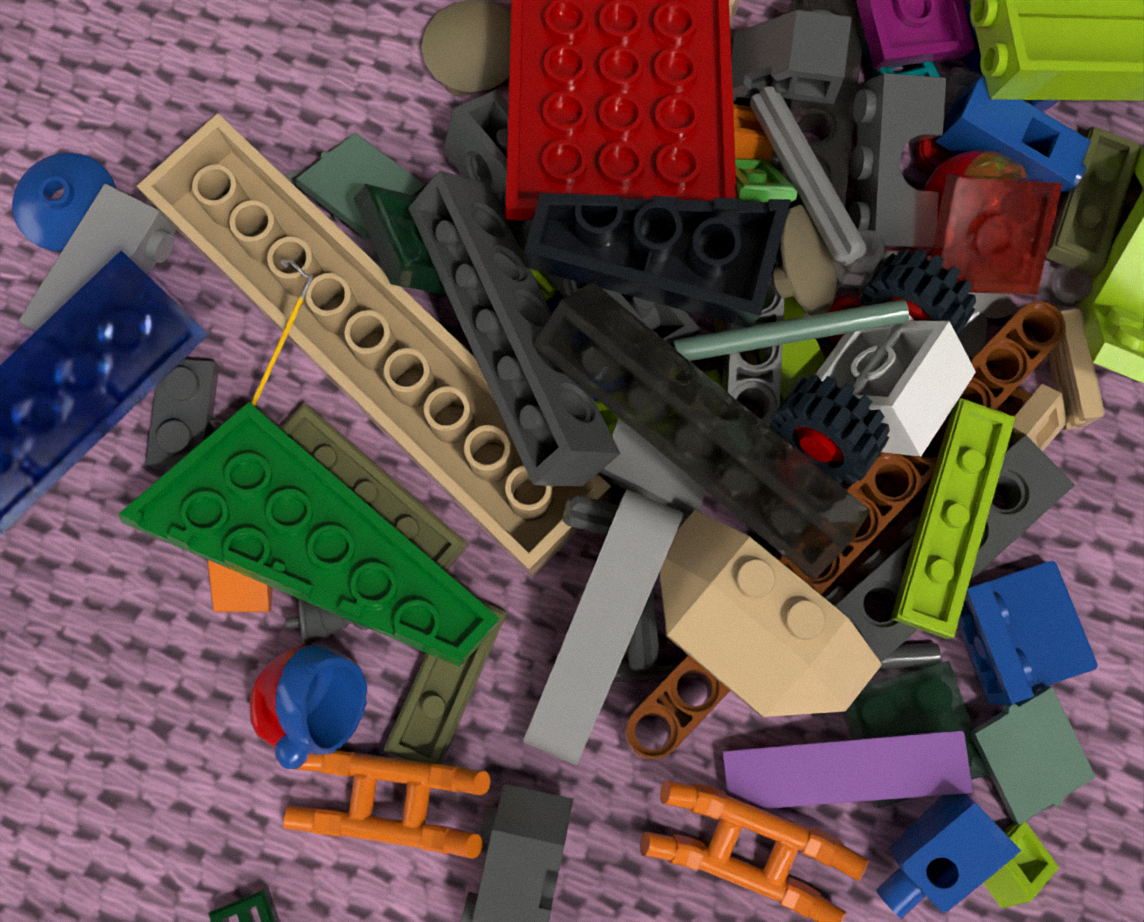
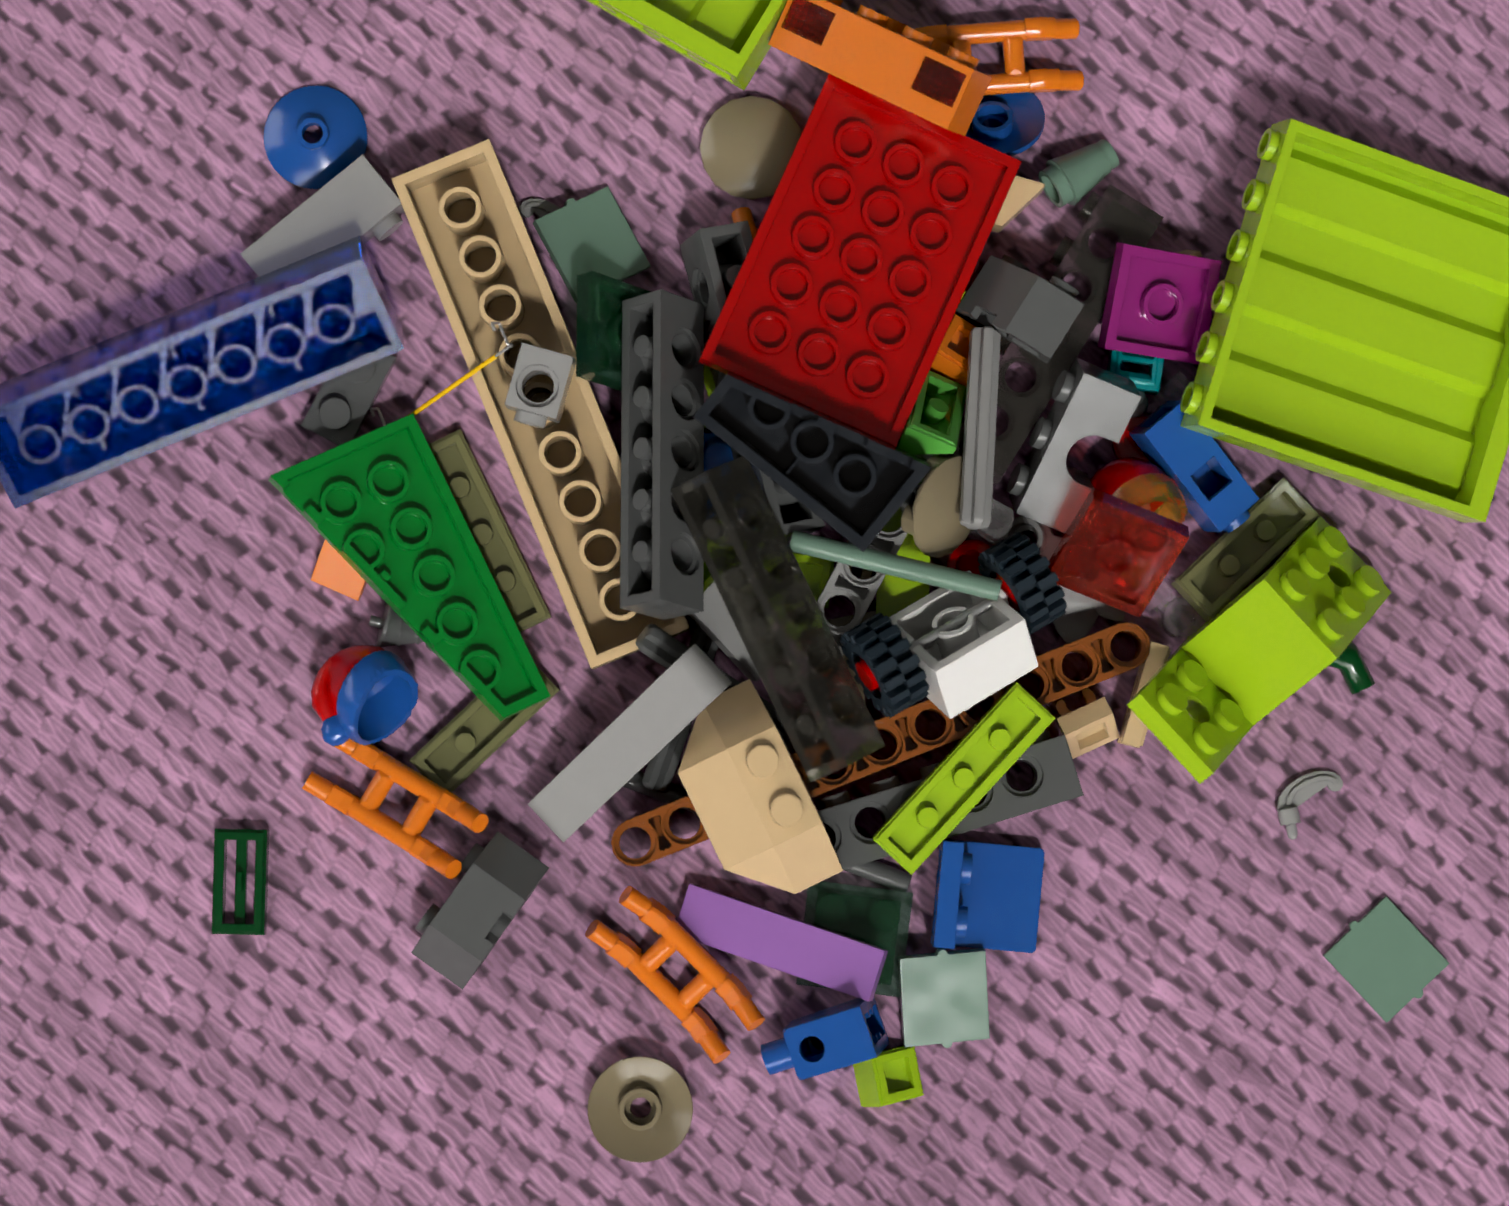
camera: 25 degrees right, 10 degrees up
(354, 283) = (536, 361): none -> light grey brick

